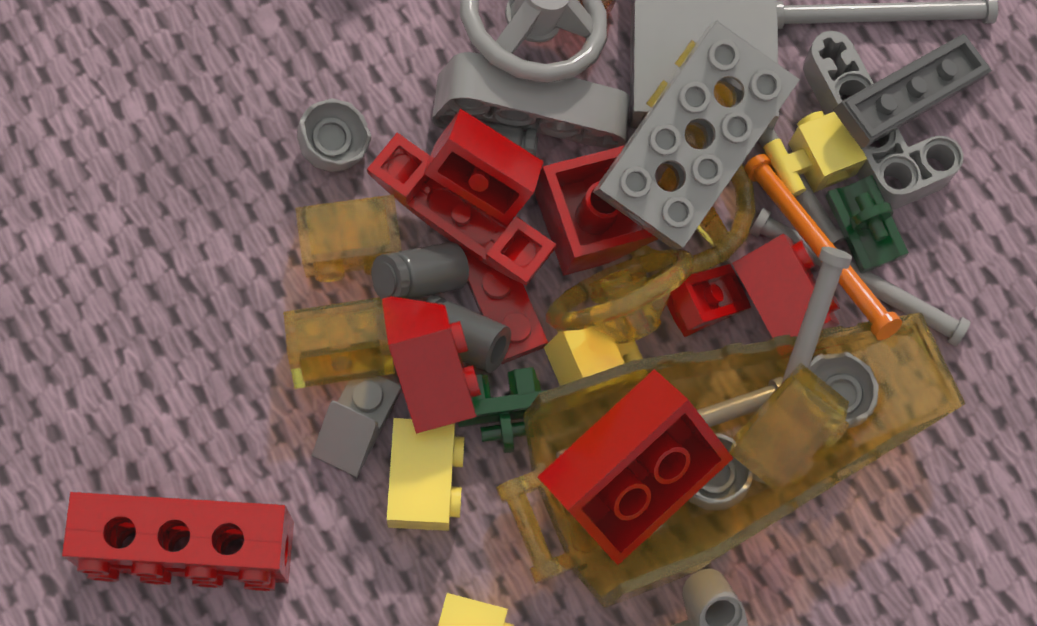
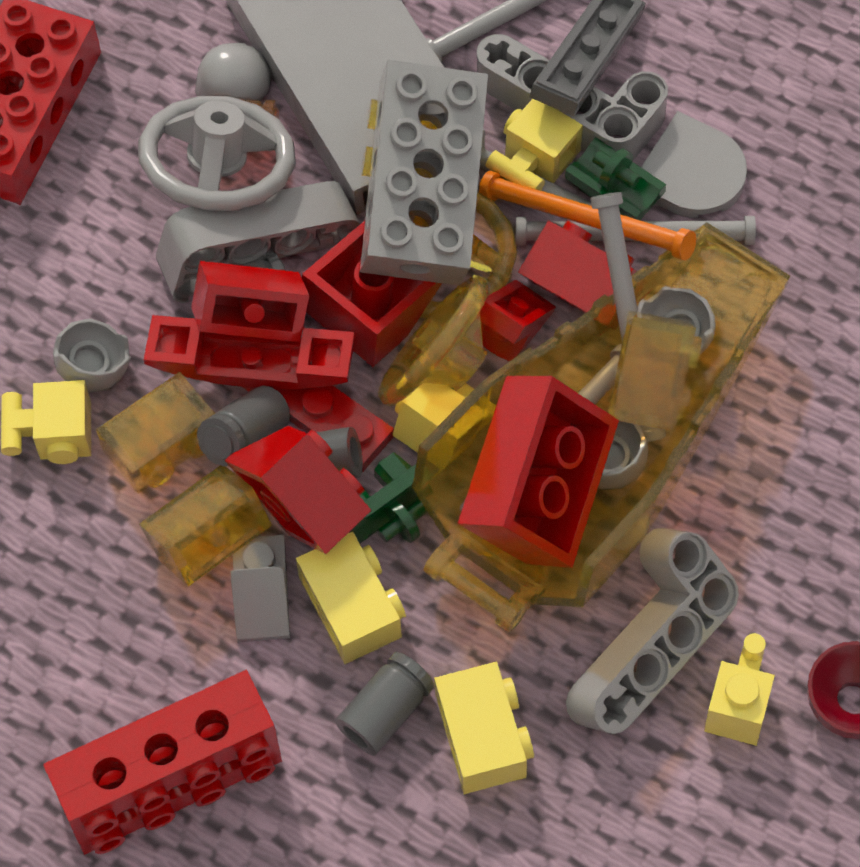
camera: 20 degrees left, 10 degrees down
(271, 180) = (57, 421): none -> light yellow brick
(398, 586) = (385, 703): none -> dark grey piece
(946, 247) = (699, 166): none -> light grey tile

